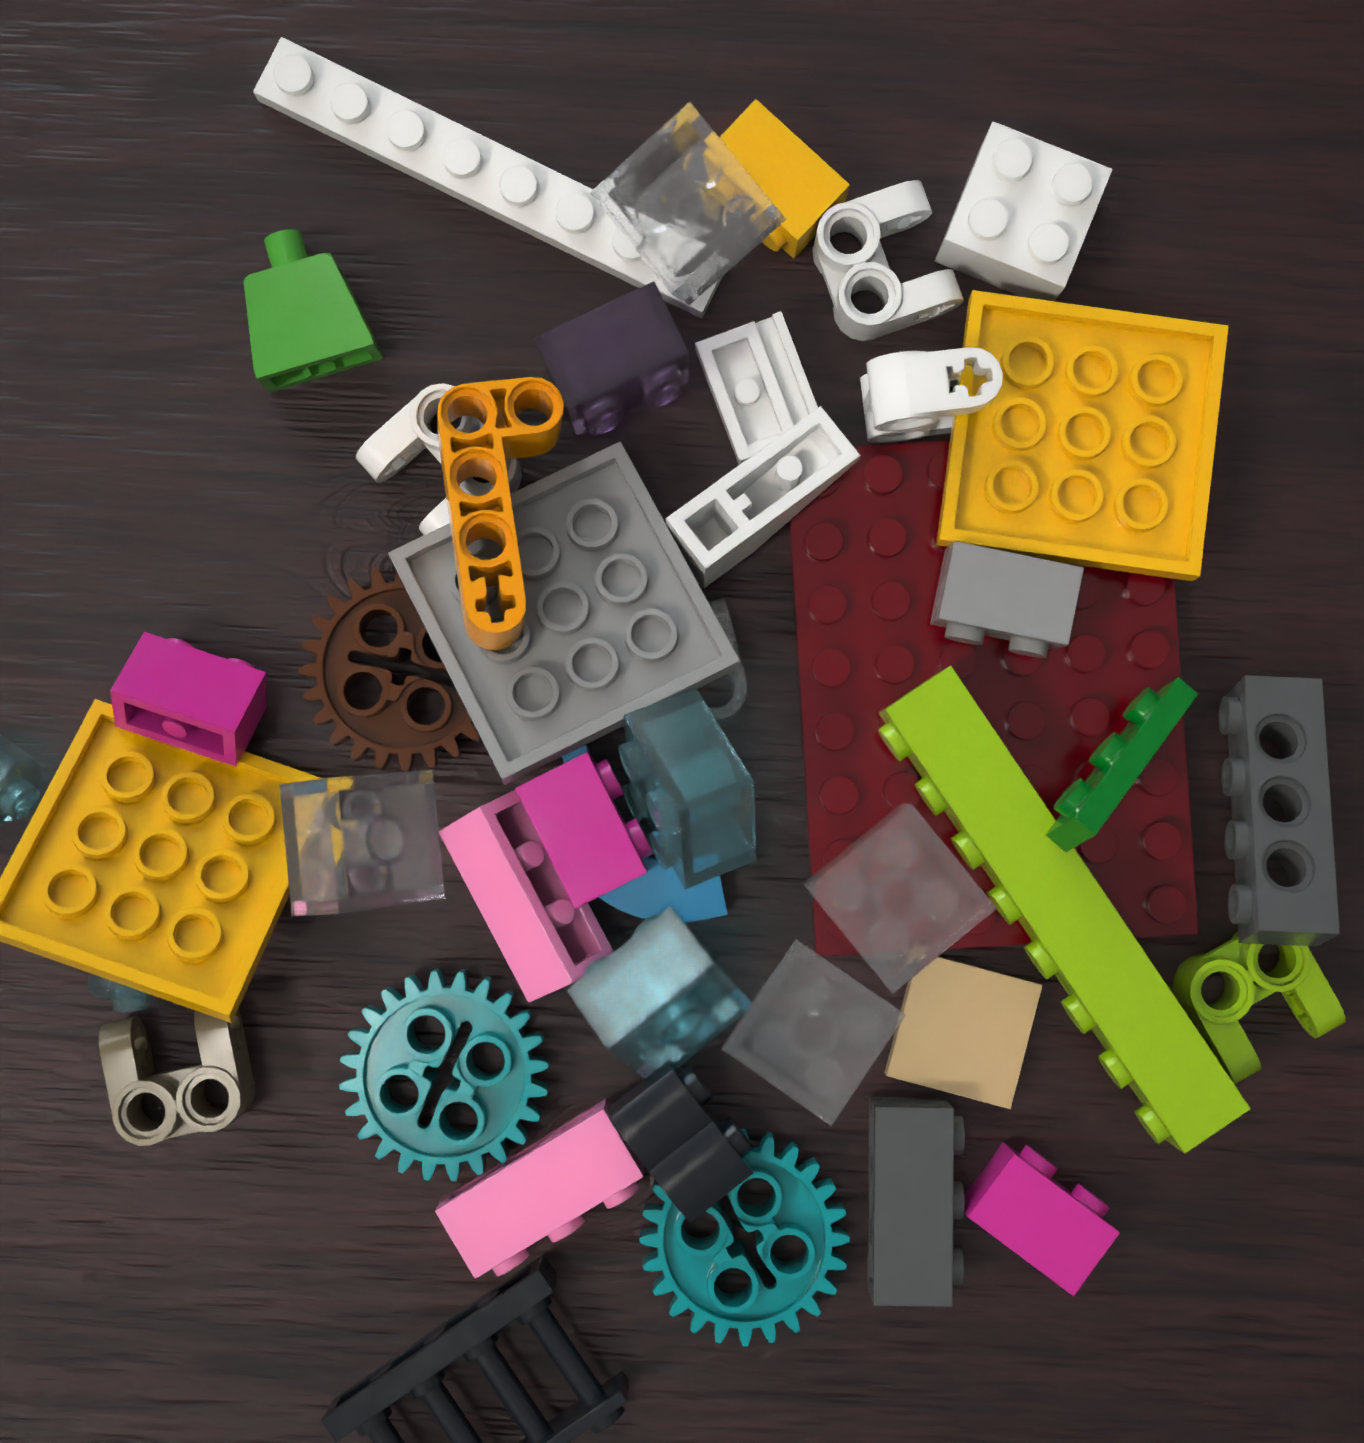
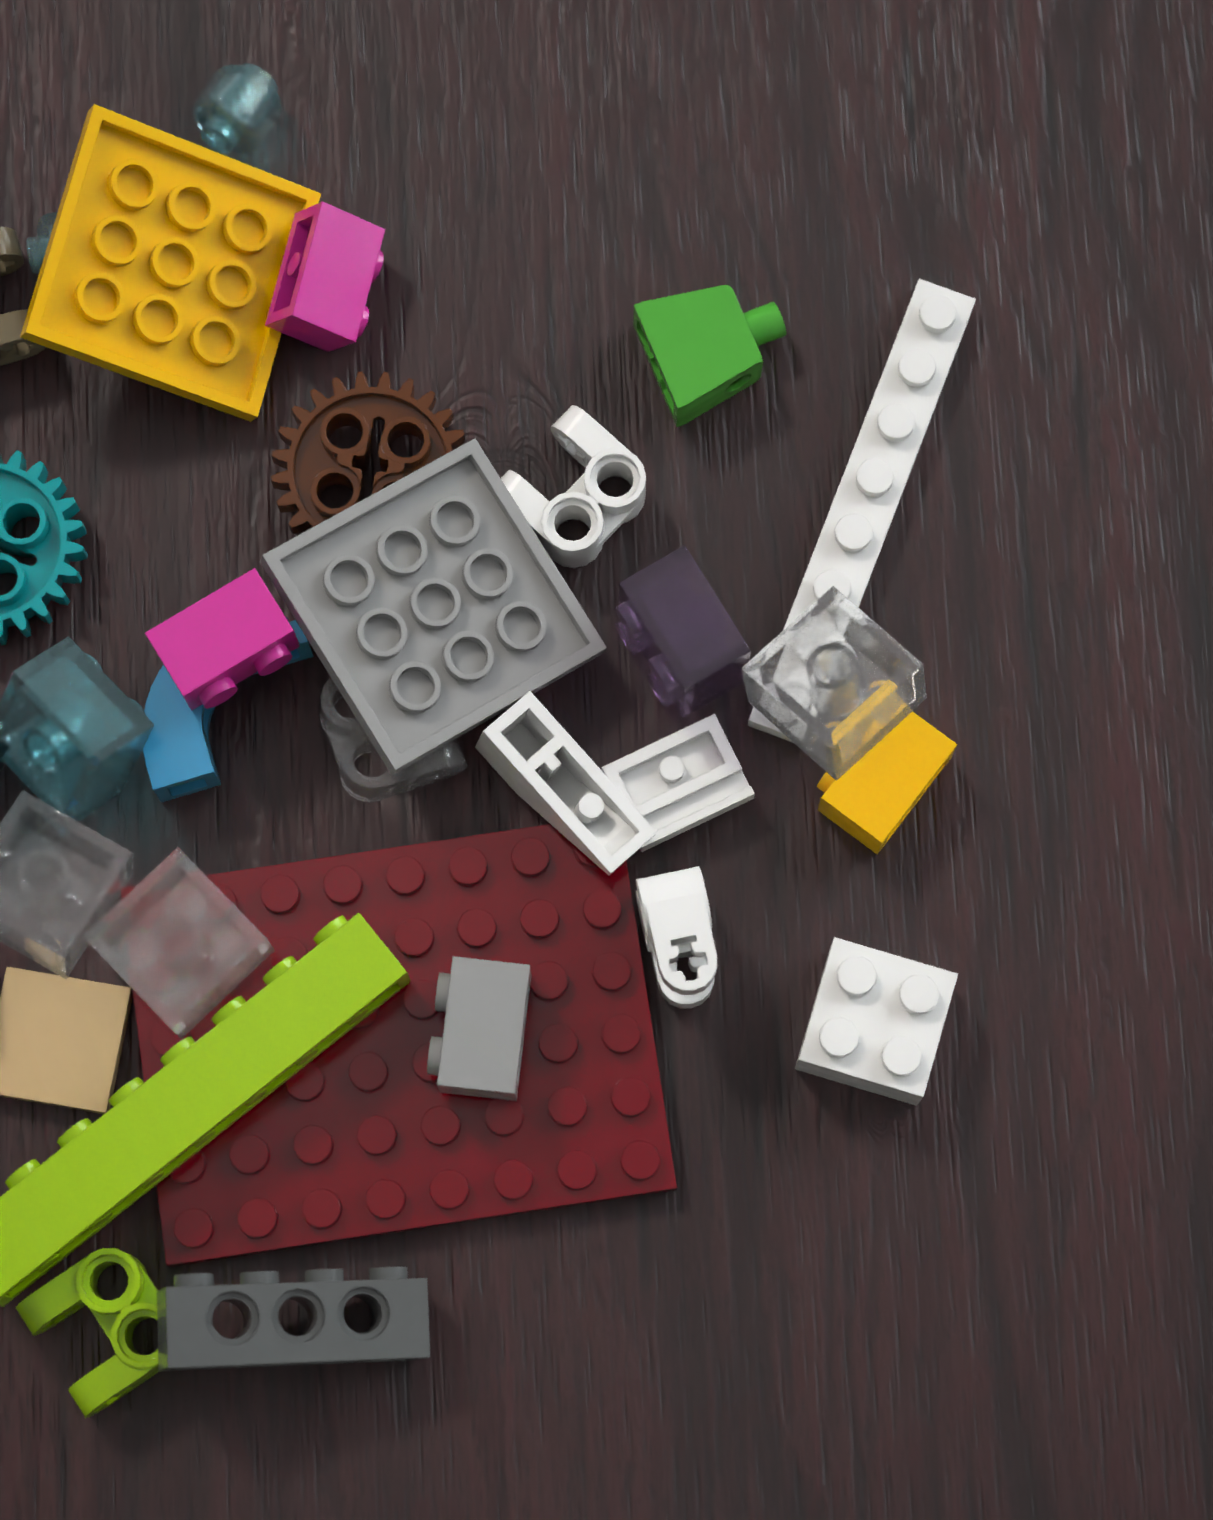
camera: 85 degrees right, 10 degrees down
(361, 842) = (198, 443): clear brick -> none
(491, 514) = (517, 527): light orange beam -> none
(523, 897) = (115, 617): bright pink brick -> none
(689, 788) = (267, 731): clear light blue brick -> none
(845, 274) = (809, 877): white piece -> none
(1092, 440) = (653, 1096): yellow plate -> none
(1119, 763) = (325, 1143): green plate -> none

